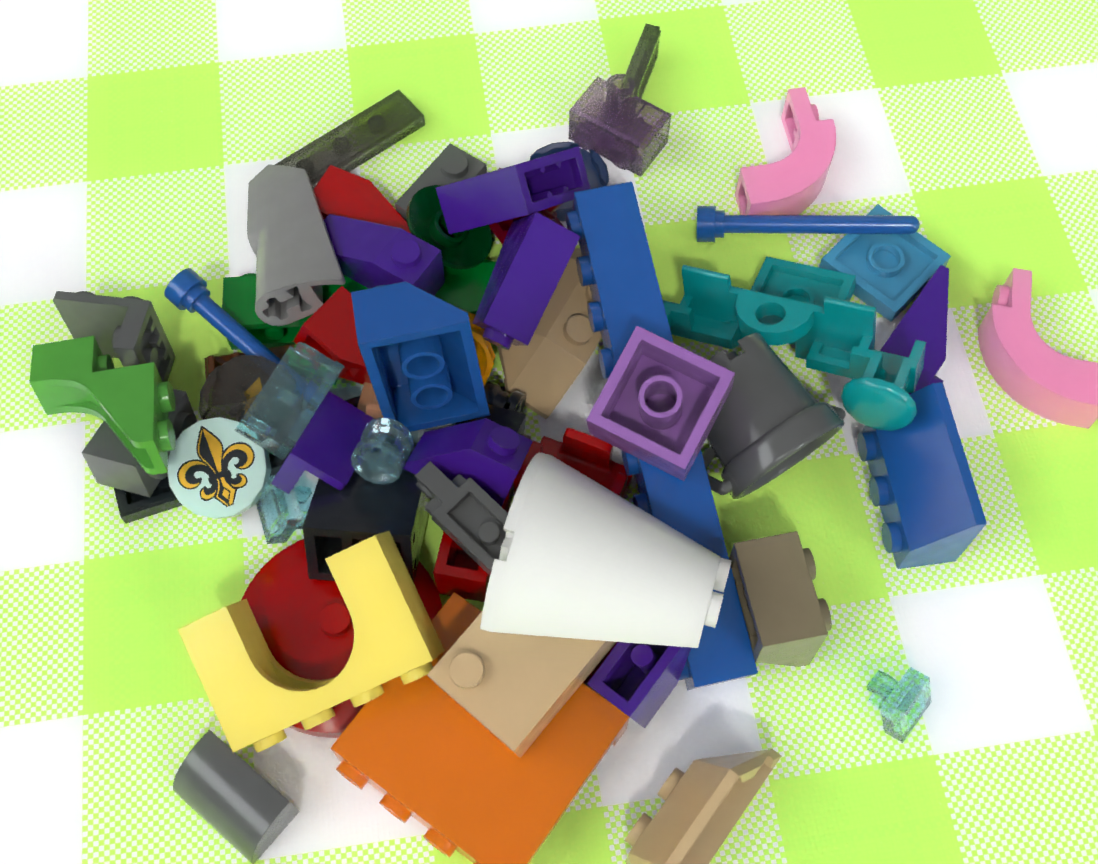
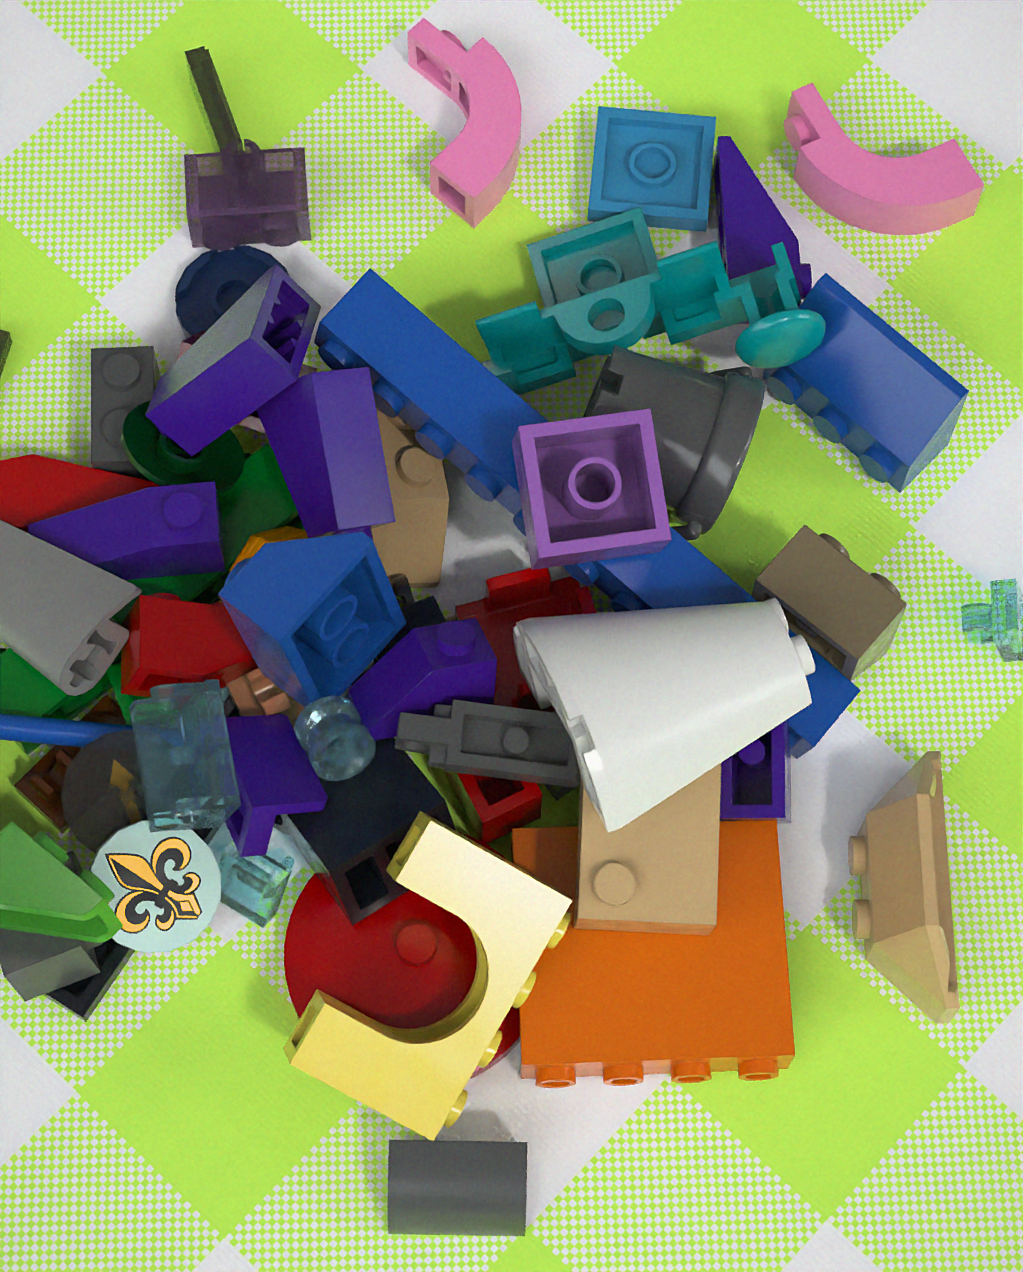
camera: 40 degrees left, 5 degrees up
(714, 223) = (445, 243): blue piece -> none

